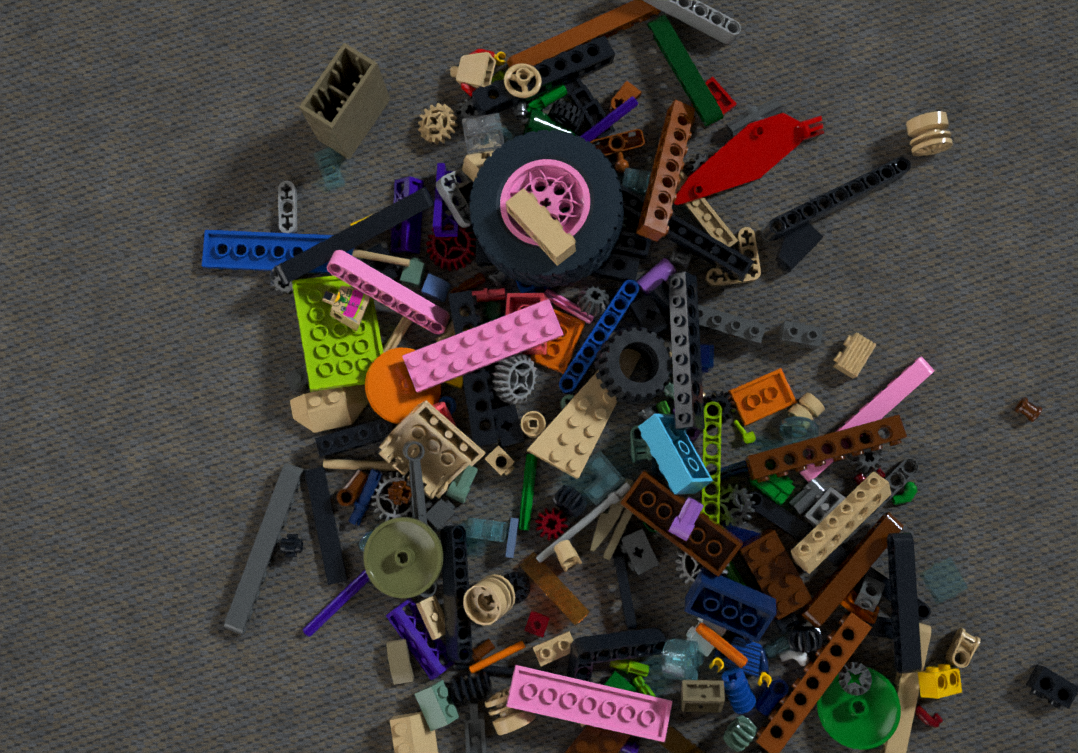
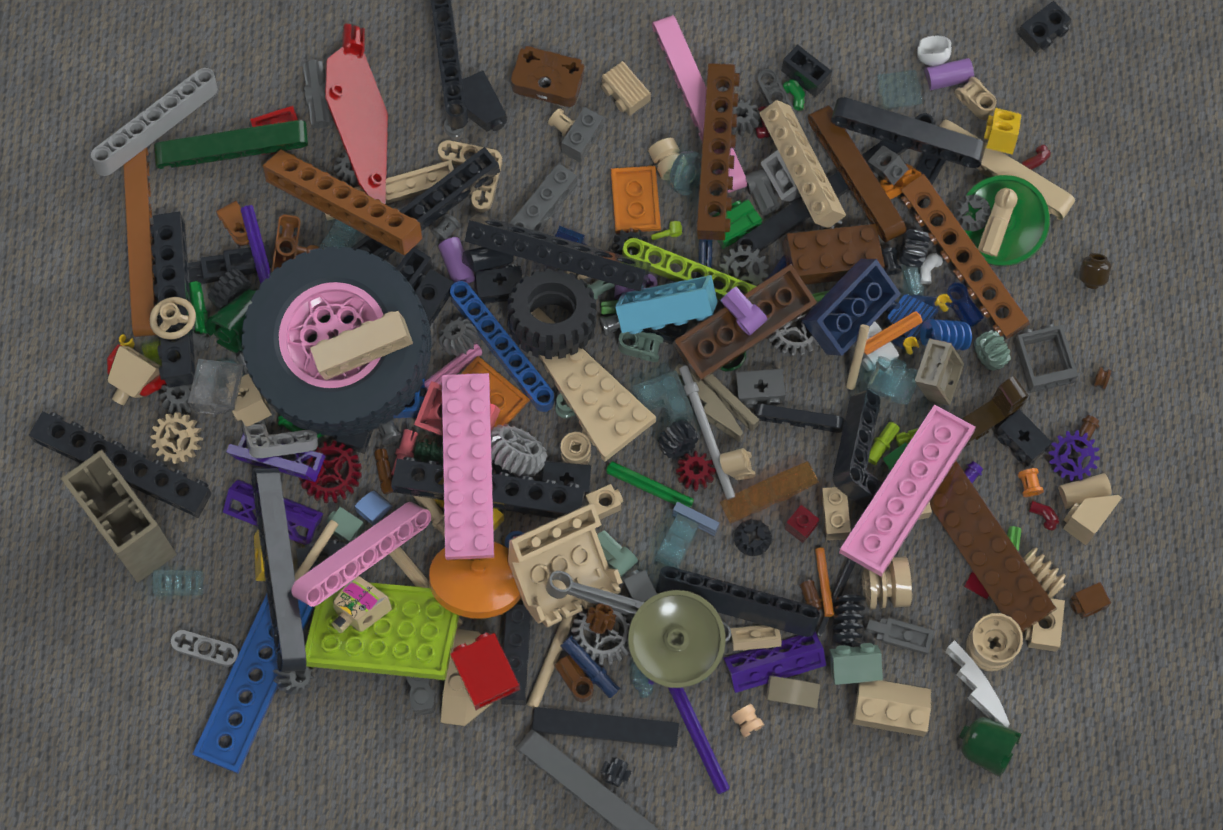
camera: 75 degrees left, 10 degrees down
(327, 418) = (484, 670): none -> red brick
(365, 633) = (747, 720): none -> light nougat wheel
(407, 29) = (192, 503): none -> black brick
(489, 599) = (760, 575): tan wheel -> none
(696, 623) = (857, 357): none -> tan bar
(805, 314) = (561, 122): none -> tan bush
(846, 289) = (550, 70): none -> reddish brown axle
(854, 704) = (998, 222): none -> tan piece
(928, 497) = (806, 70): none -> black brick
(975, 617) = (949, 73): none -> medium lavender brick
(997, 601) = (938, 45): none -> white hair

